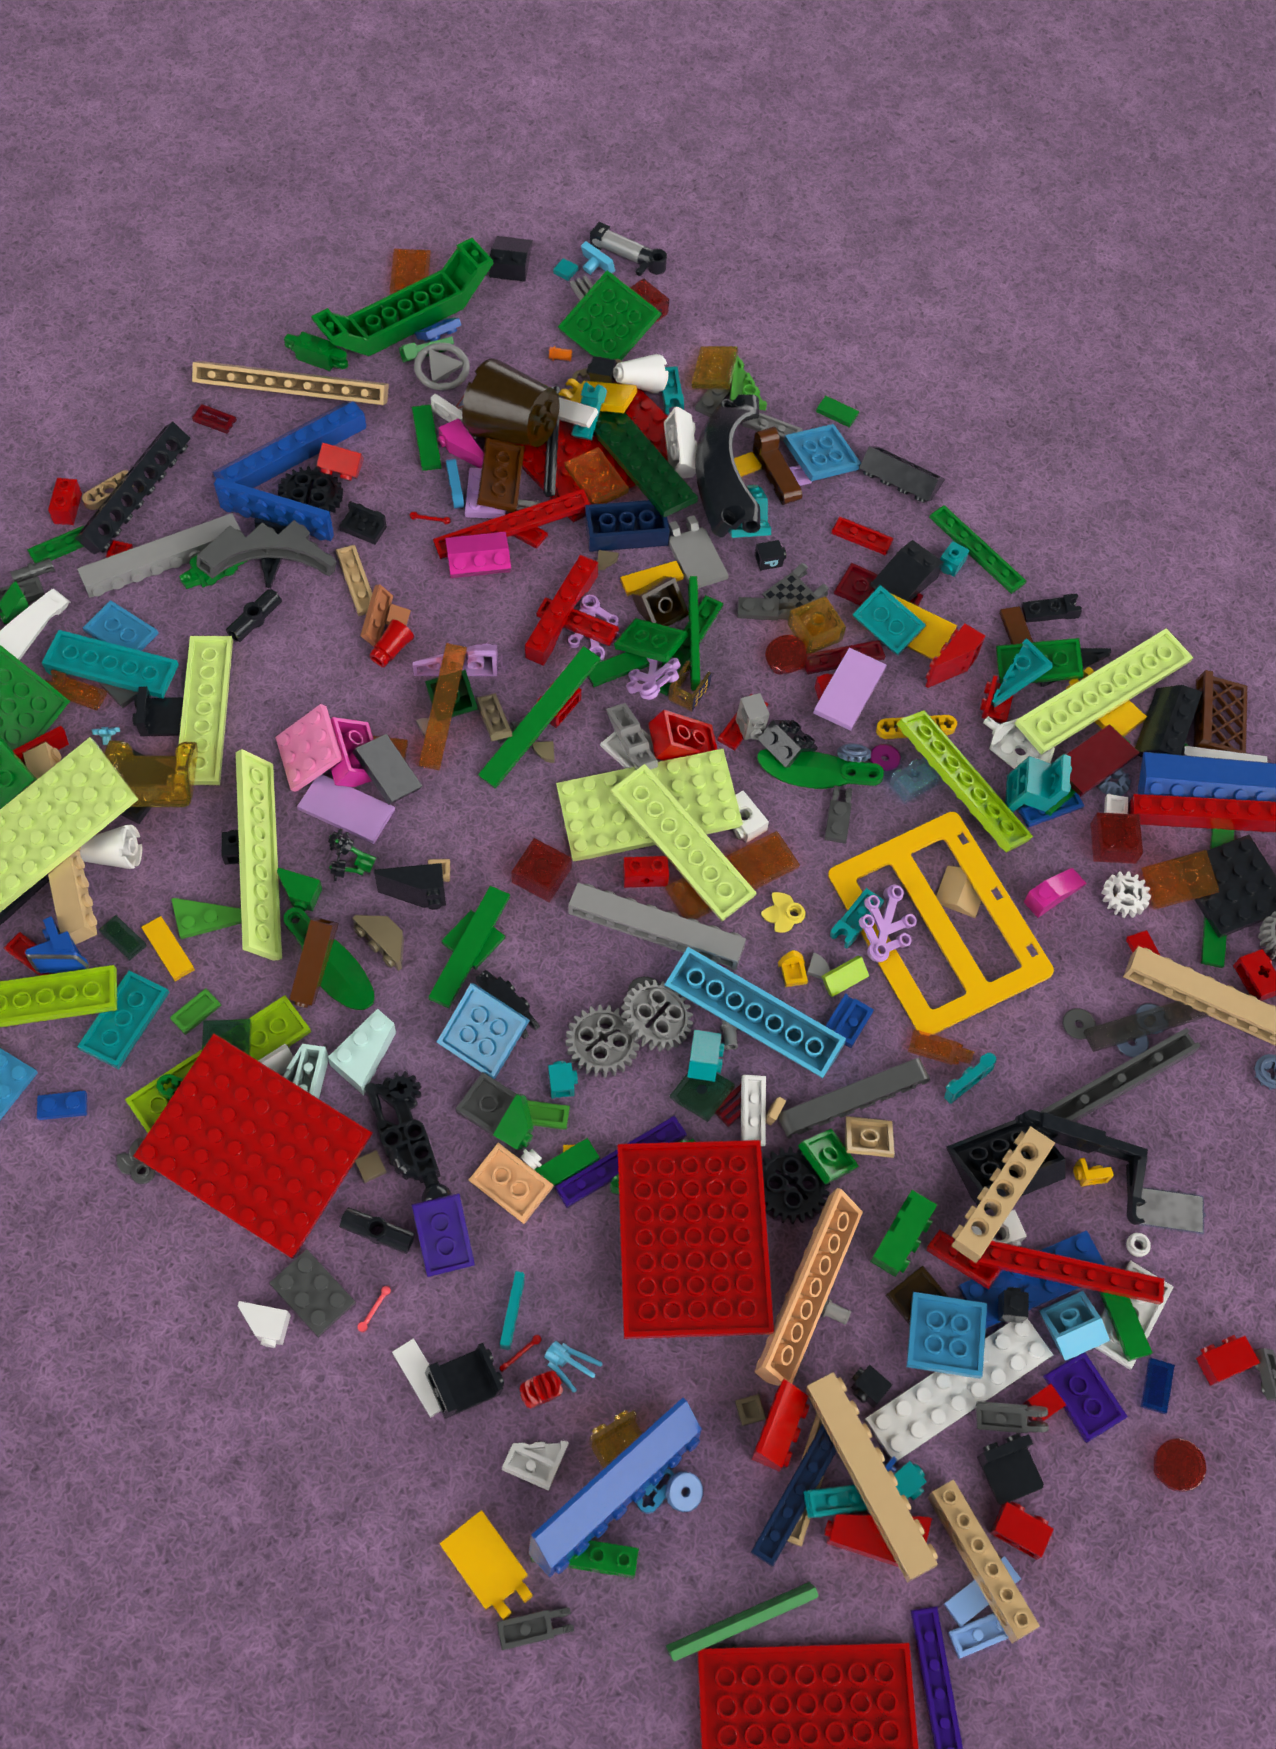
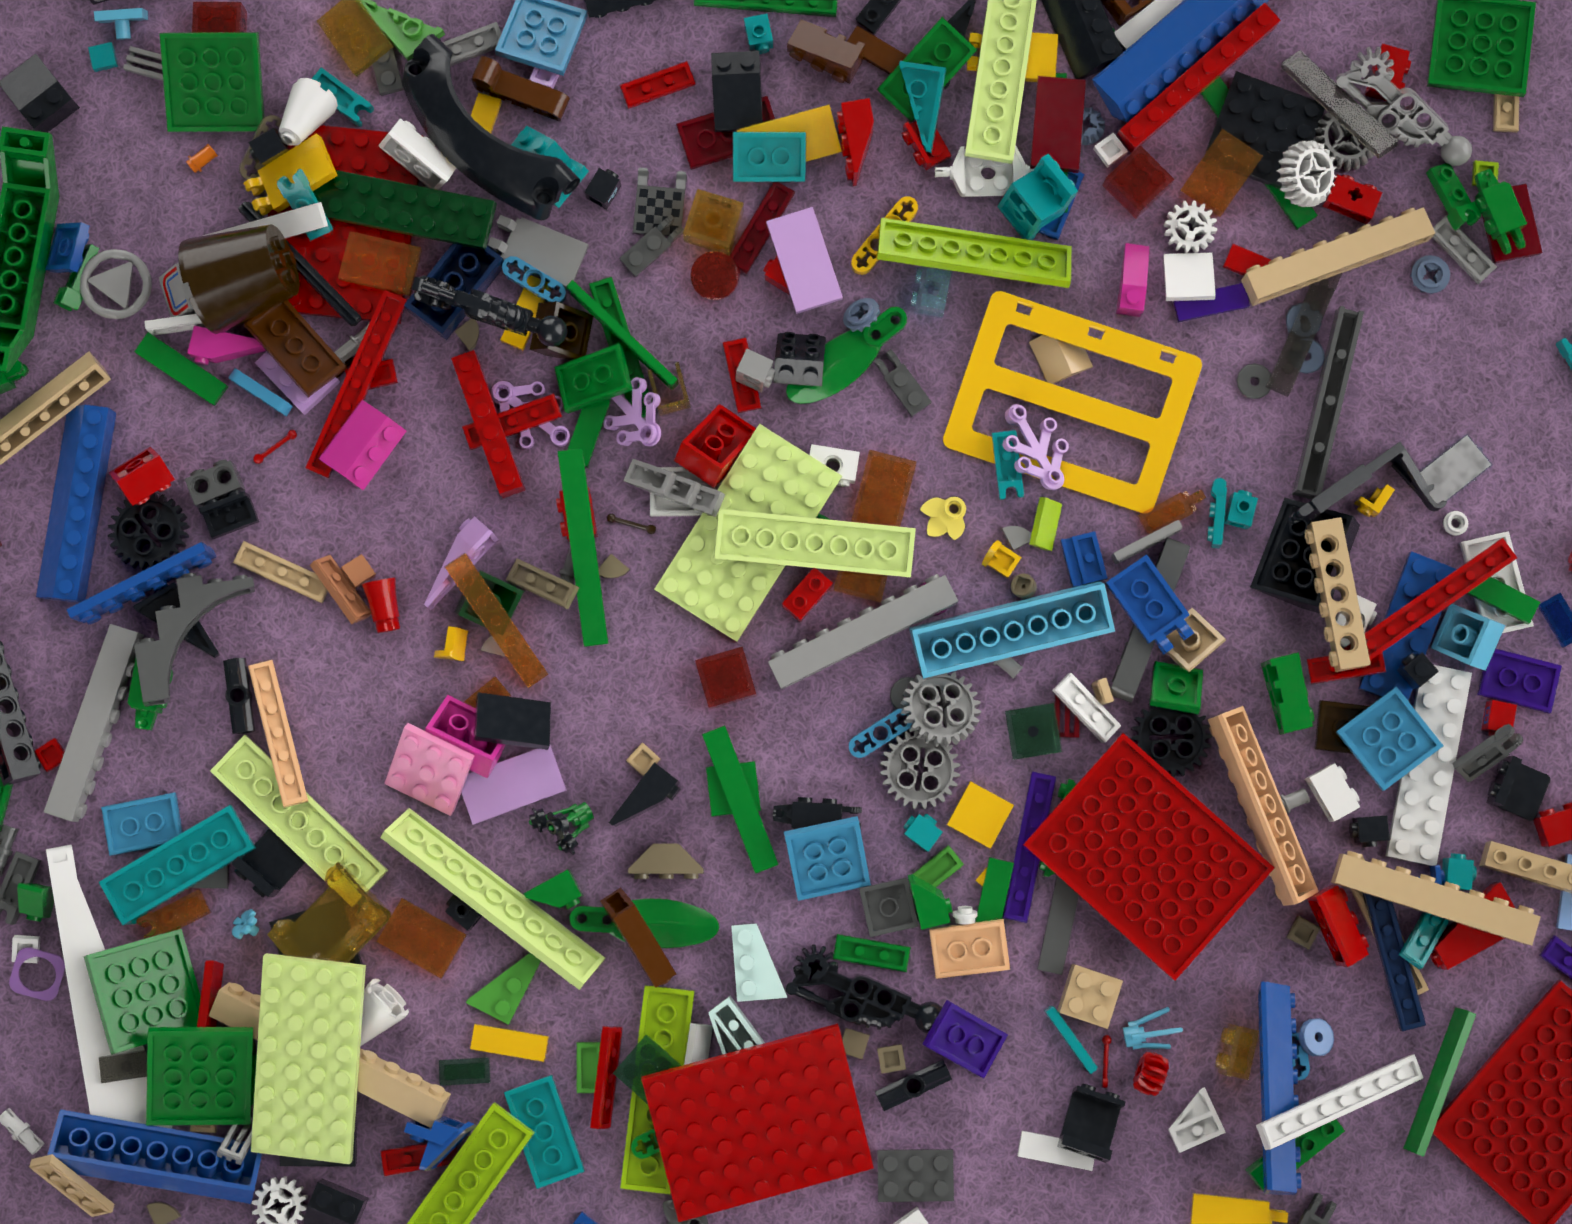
camera: 40 degrees left, 20 degrees up
(191, 838) = (422, 938): none -> clear orange plate
(192, 1027) = (605, 1079): none -> red tile
(249, 653) = (278, 733): none -> light nougat tile
(362, 1326) = (976, 1160): coral hinge -> none
(376, 500) = (213, 476): none -> dark grey brick
(382, 1199) = (891, 1058): none -> dark tan plate
(404, 702) = (454, 645): none -> yellow tile
(446, 1122) = (871, 953): none -> green tile
(556, 1294) = (1089, 996): none -> tan brick
(582, 1232) = (1058, 928): none -> dark grey tile
(584, 997) = (860, 736): none -> dark azure beam
(592, 752) = (651, 529): none -> dark brown hinge
(611, 1109) = (980, 815): none -> yellow tile
(629, 540) = (490, 310): none -> black arm
(651, 1543) = (1339, 1102): none -> white tile
(676, 555) = (553, 284): none -> dark azure beam
(705, 1055) = (1010, 703): teal brick -> none
(791, 997) = (1023, 586): none -> dark tan tile
(865, 1083) = (1150, 603): none -> blue tile
(869, 1333) = (1333, 792): none -> white brick
(888, 751) = (887, 281): magenta piece -> none
(901, 1048) = (1146, 542): none -> light grey tile
(986, 601) = (826, 51): none -> reddish brown wedge
(988, 1090) = (1241, 509): none -> teal brick
(1095, 921) = (1189, 276): none -> white tile
(1096, 951) = (1226, 300): none -> dark purple tile
(1233, 931) = (1303, 159): none -> white gear

